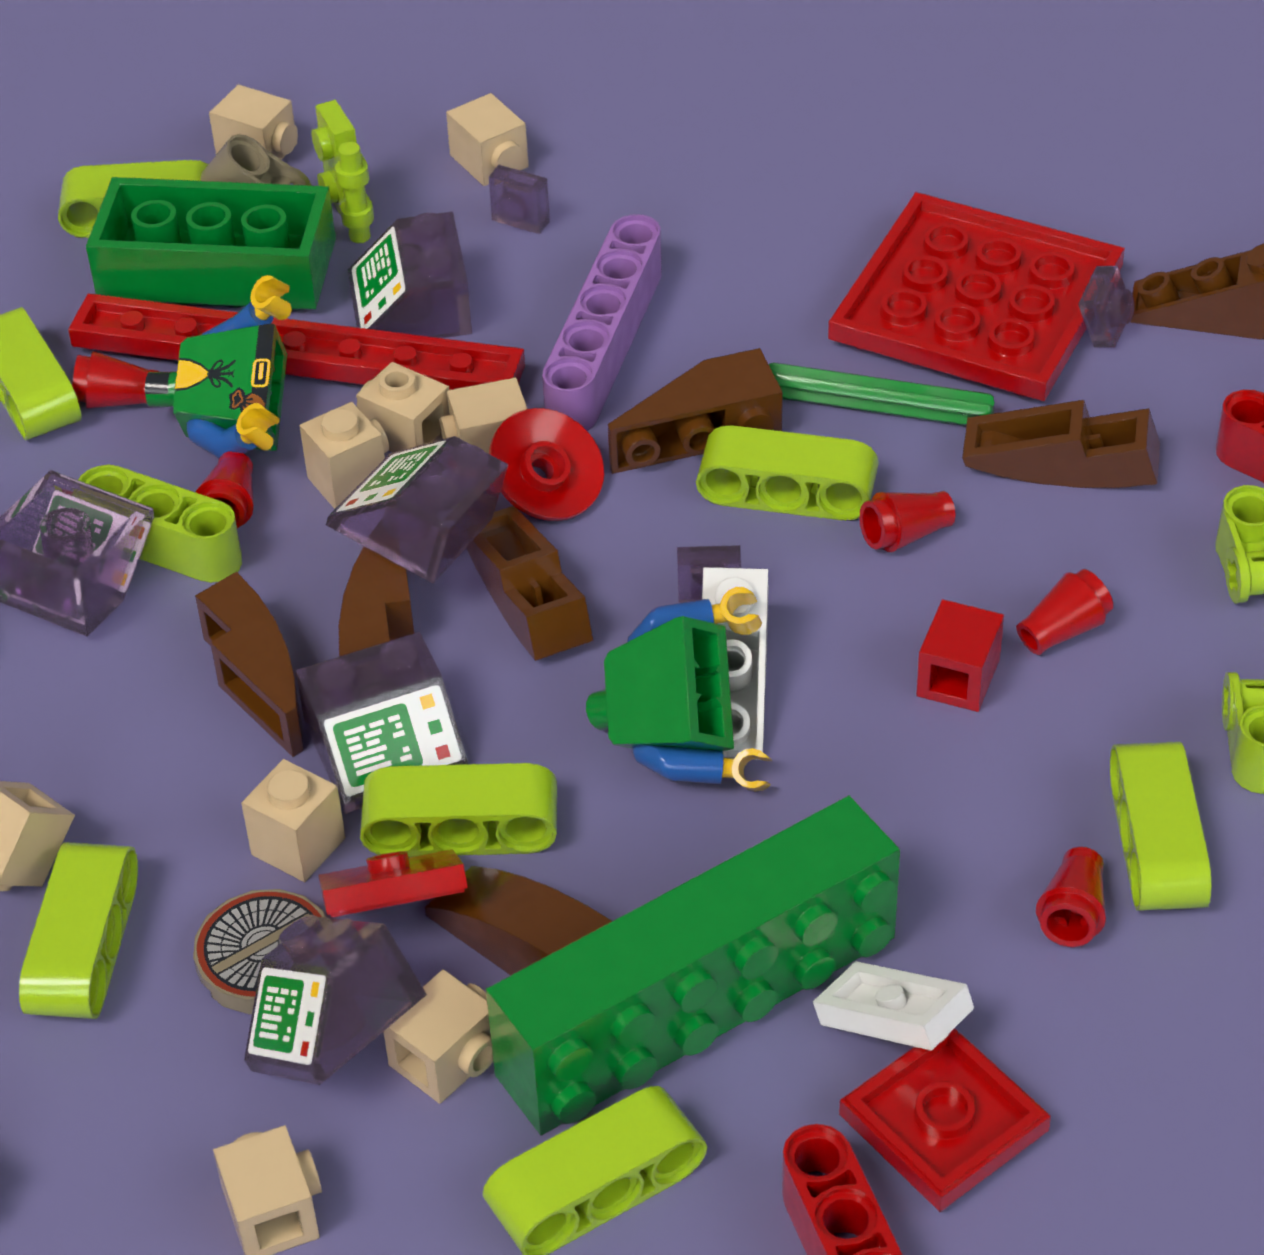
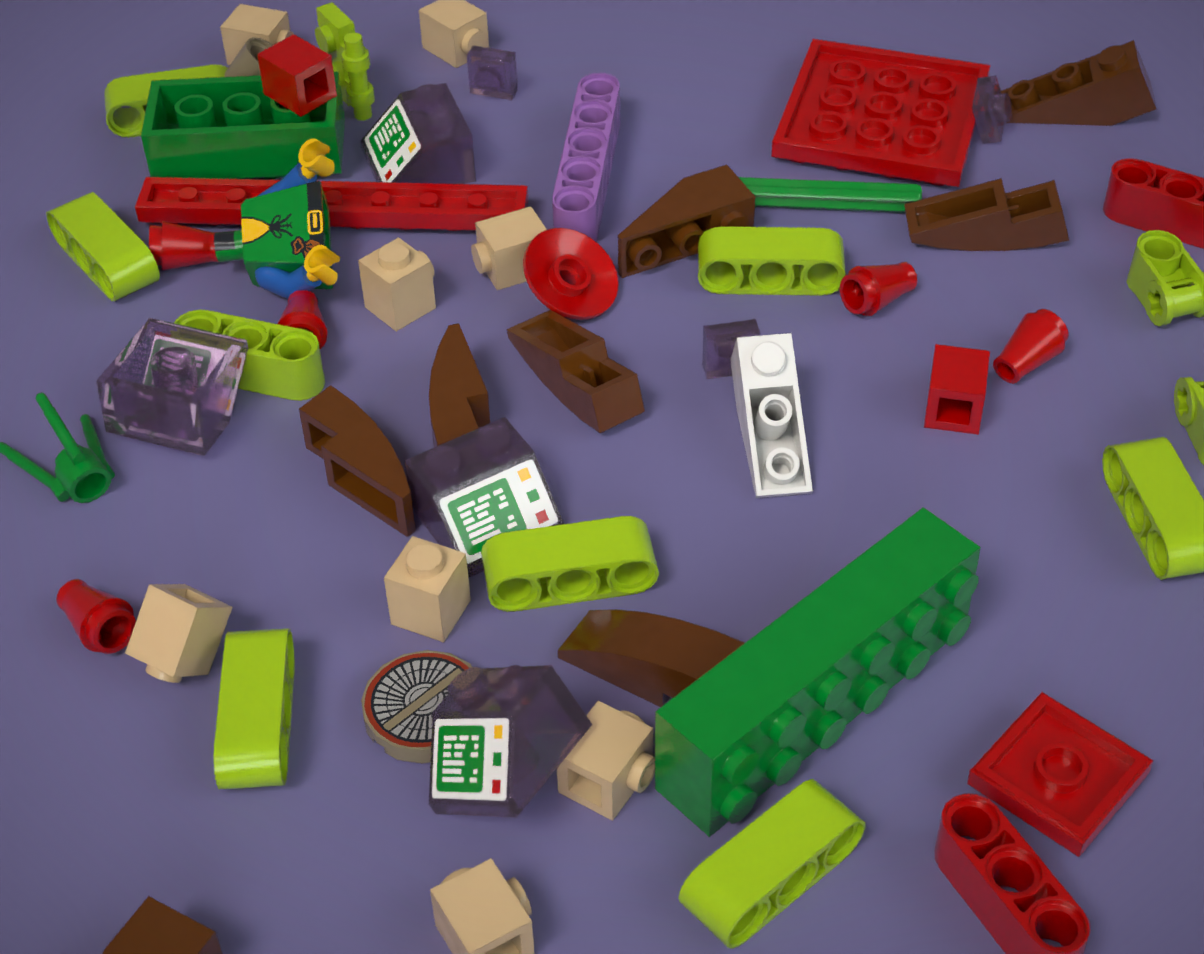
camera: 10 degrees left, 0 degrees up
(275, 189) = (297, 74): none -> red brick
(392, 881) = (531, 630): red plate -> none
(405, 406) = (444, 239): tan brick -> none
(423, 505) = (481, 312): clear purple slope -> none
(673, 692) = (735, 443): green torso -> none
(894, 1005) = (994, 683): white plate -> none
(1073, 902) = (1111, 576): red cone -> none

